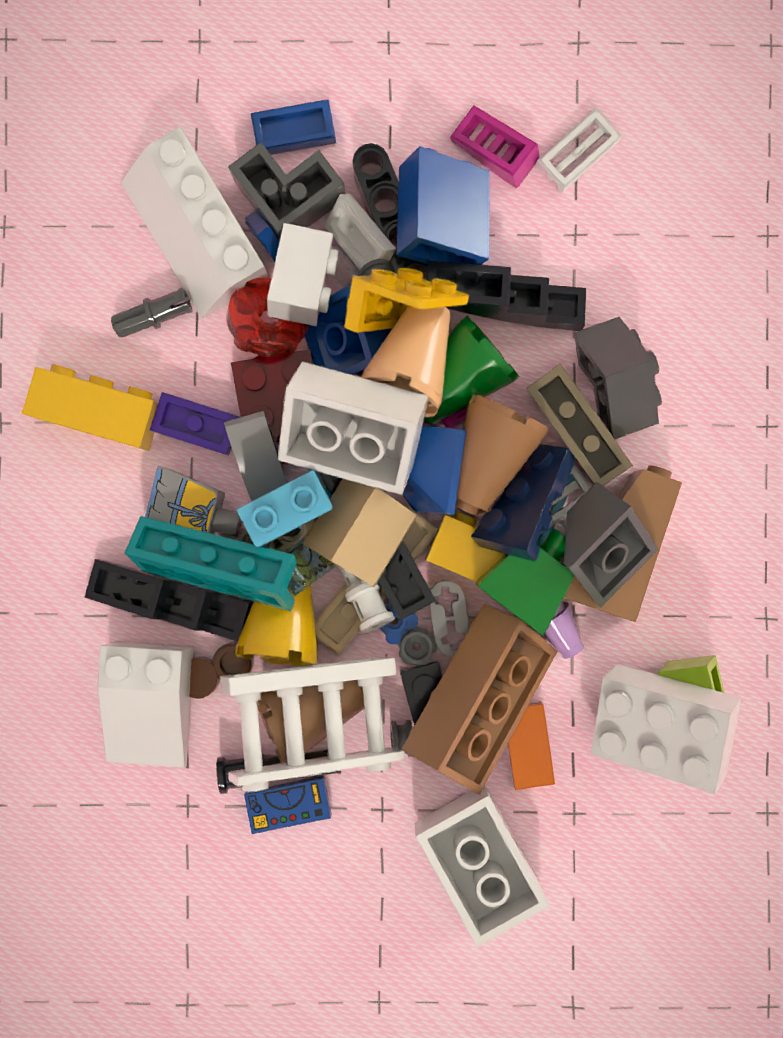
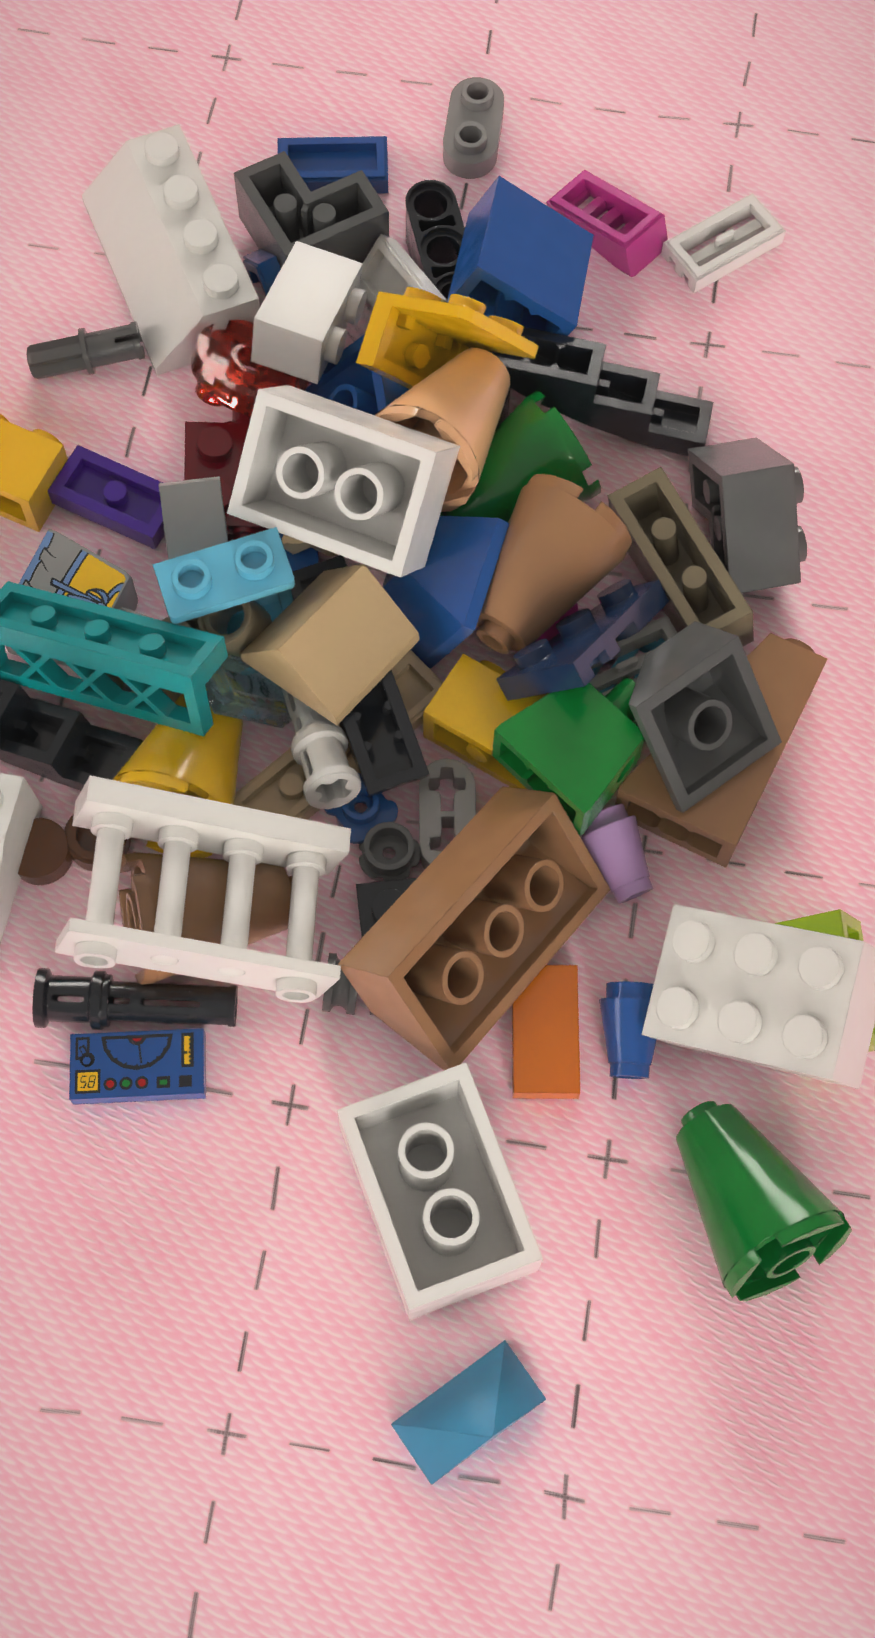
camera: 10 degrees right, 20 degrees down
(389, 76) = (477, 118): none -> light grey plate
(516, 975) = (468, 1412): none -> dark azure slope
(578, 734) = (623, 1022): none -> blue cone
(666, 841) = (754, 1203): none -> green cone

